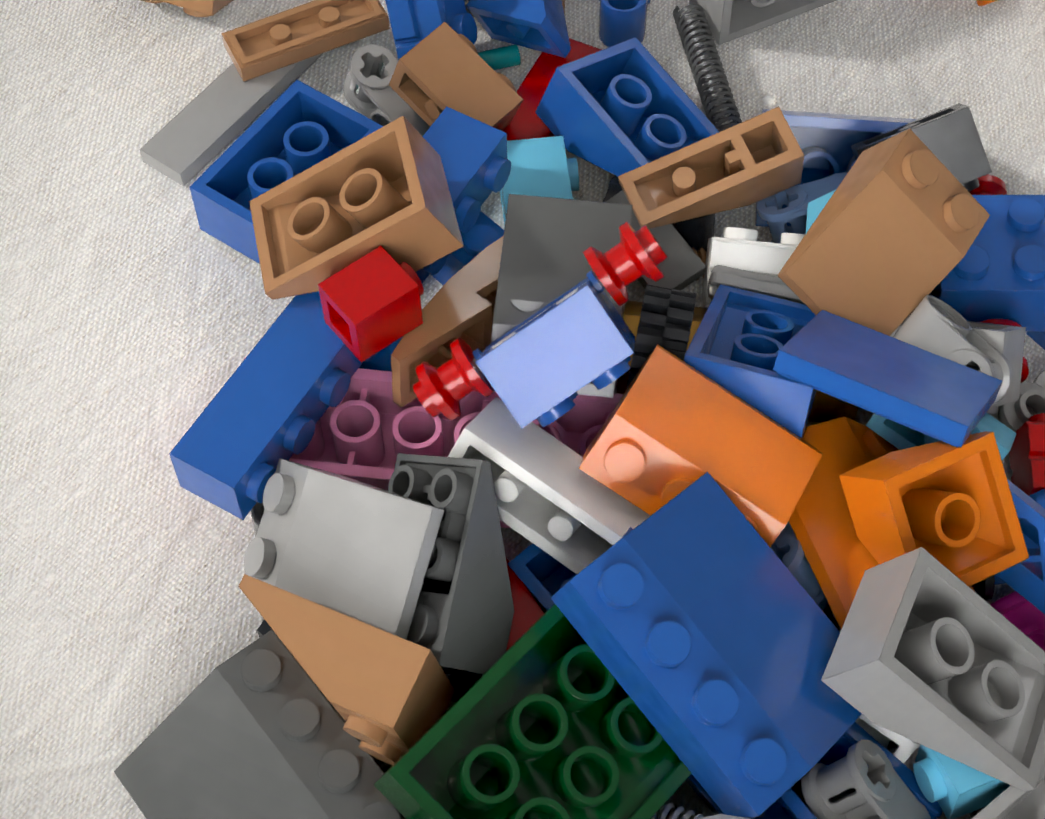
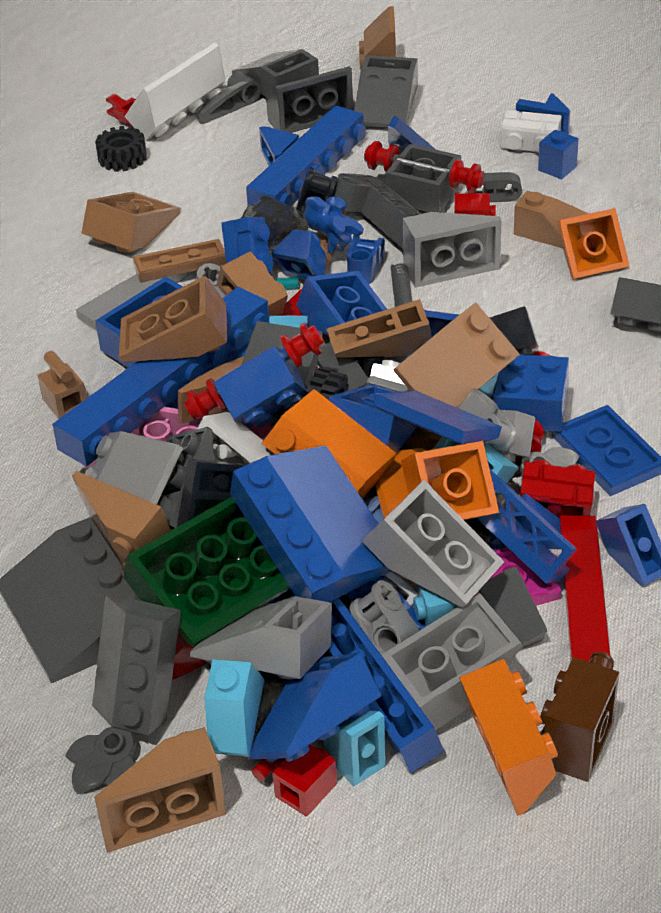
camera: 10 degrees right, 15 degrees down
(152, 327) = (60, 386): none -> medium nougat brick
(372, 302) = (172, 363): red brick -> none
(509, 584) = (205, 486): none -> black wing

